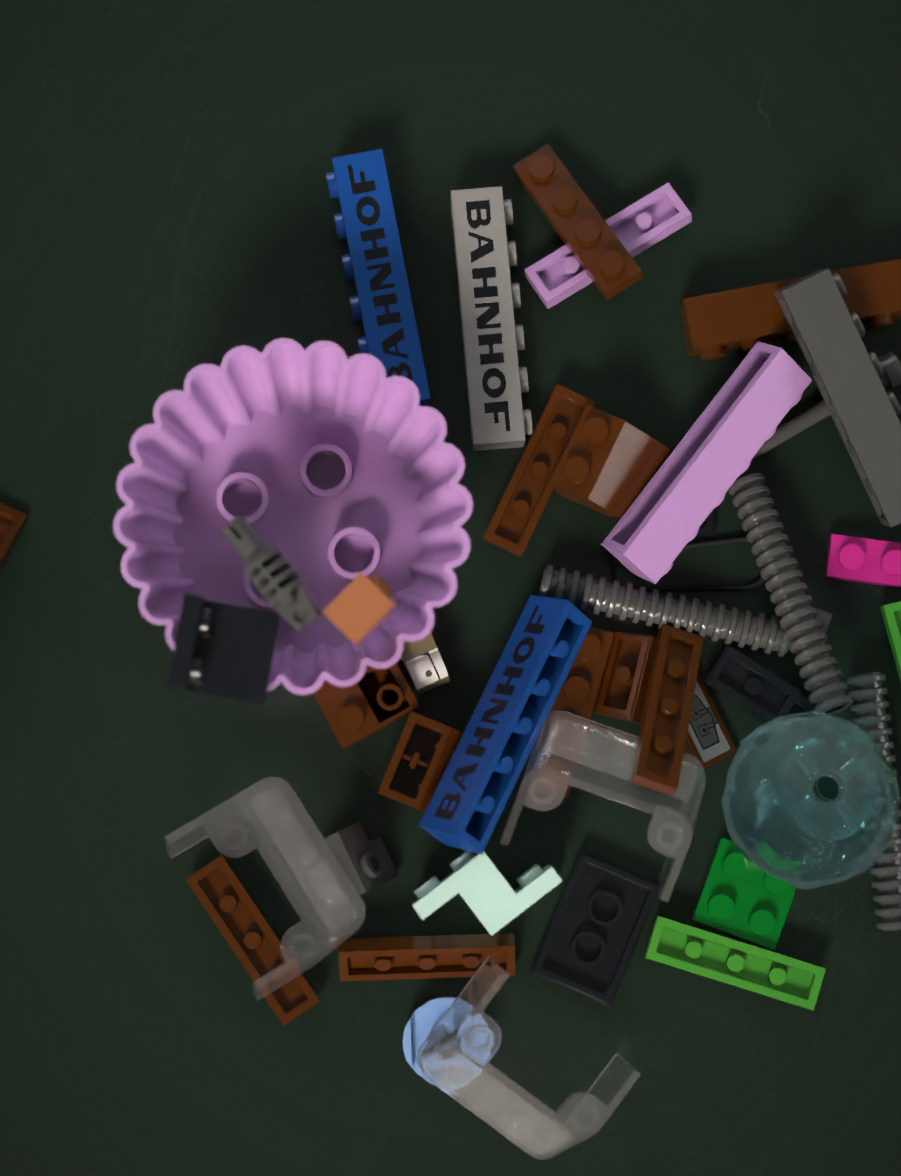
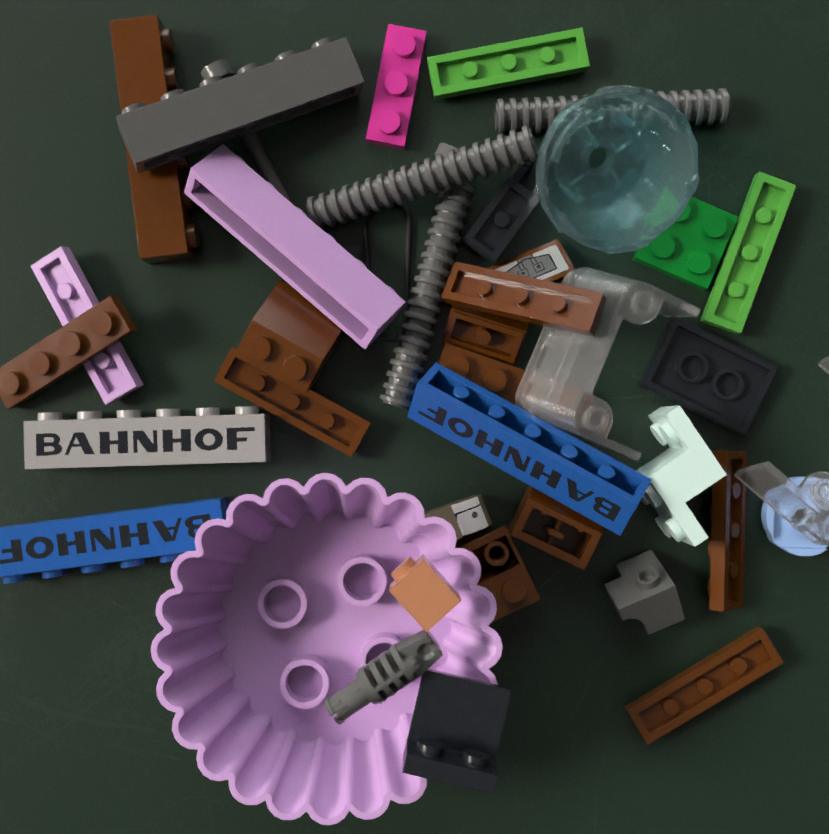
camera: 90 degrees left, 5 degrees up
(300, 859) = (599, 664): clear windscreen -> none

